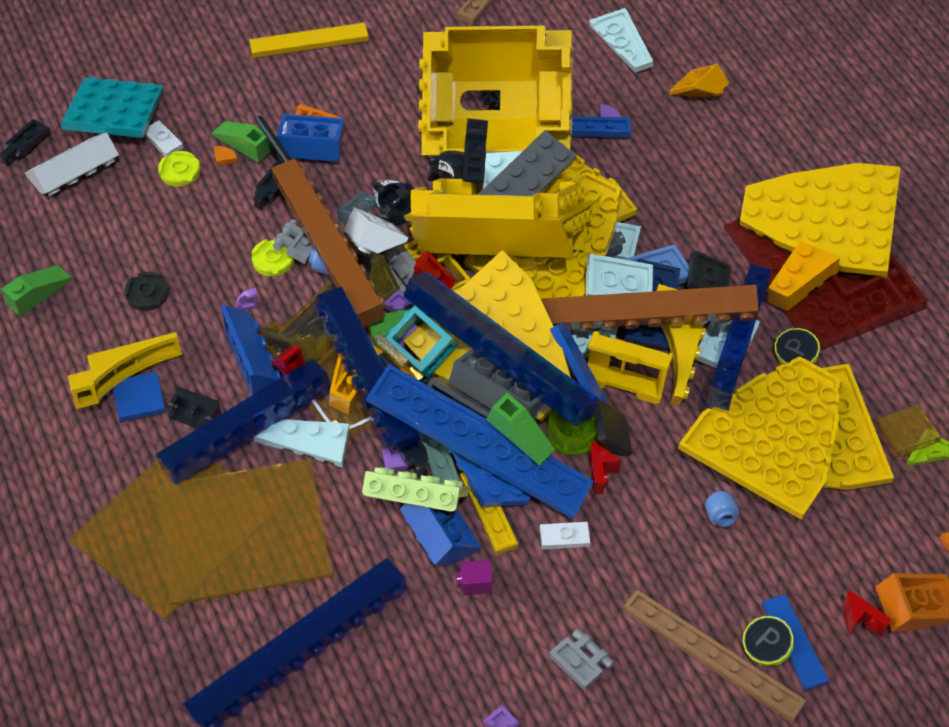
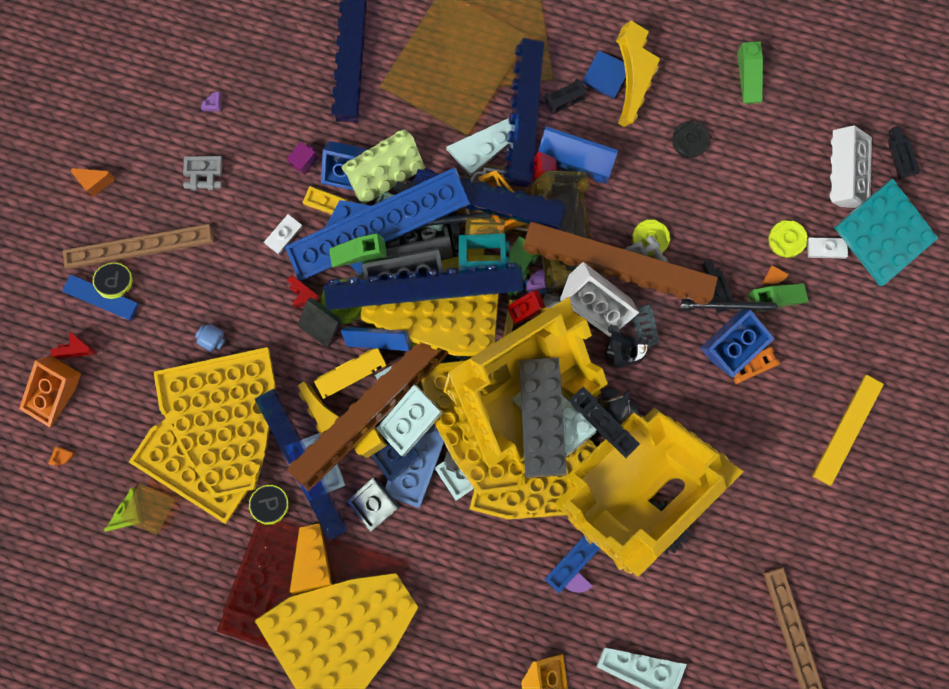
camera: 140 degrees right, 25 degrees up
(247, 299) = (624, 192): medium lavender tile -> none

